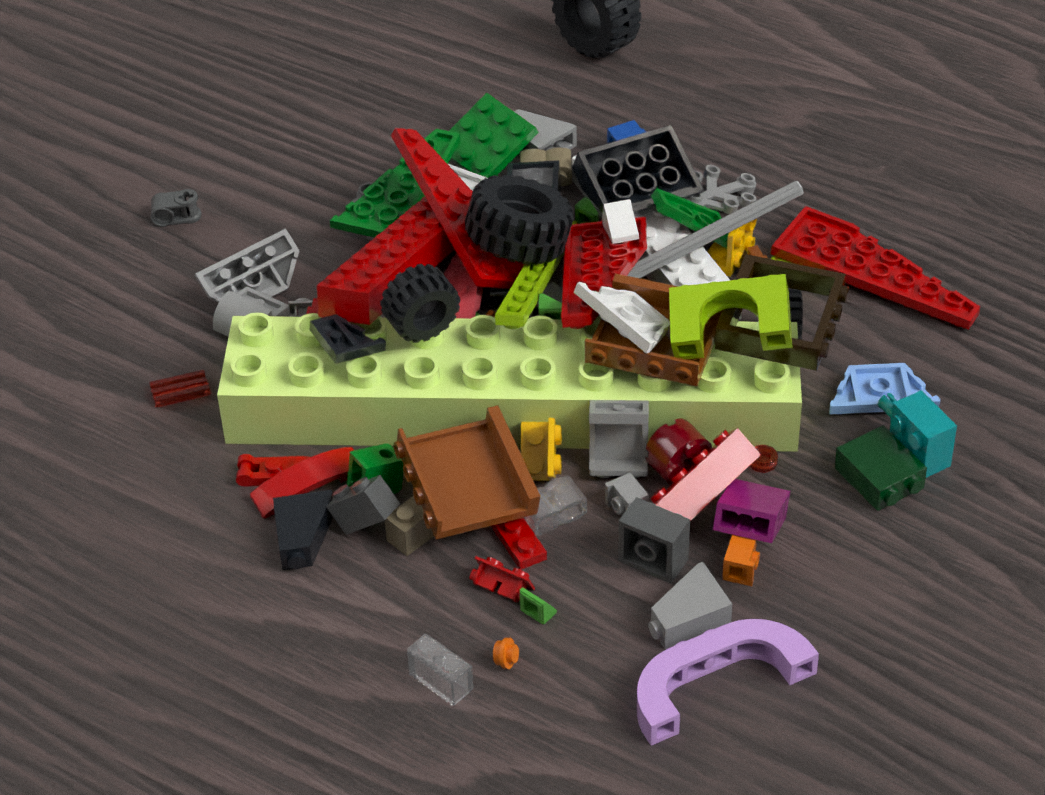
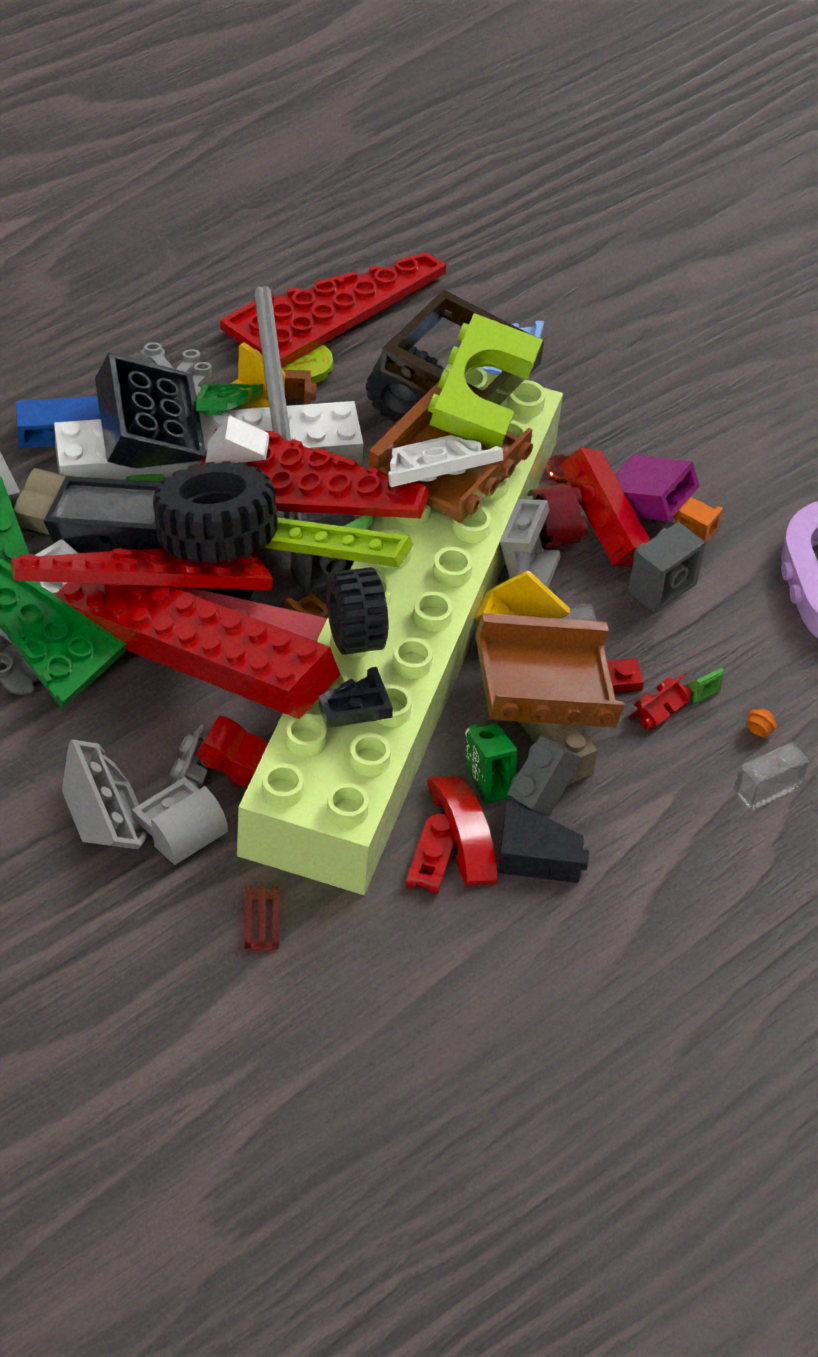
camera: 80 degrees left, 5 degrees up
(622, 493) = (589, 576): light grey brick -> none
(690, 608) = (744, 572): light grey slope -> none
(880, 468) = (613, 390): dark green brick -> none
(921, 429) = (591, 343): teal brick -> none

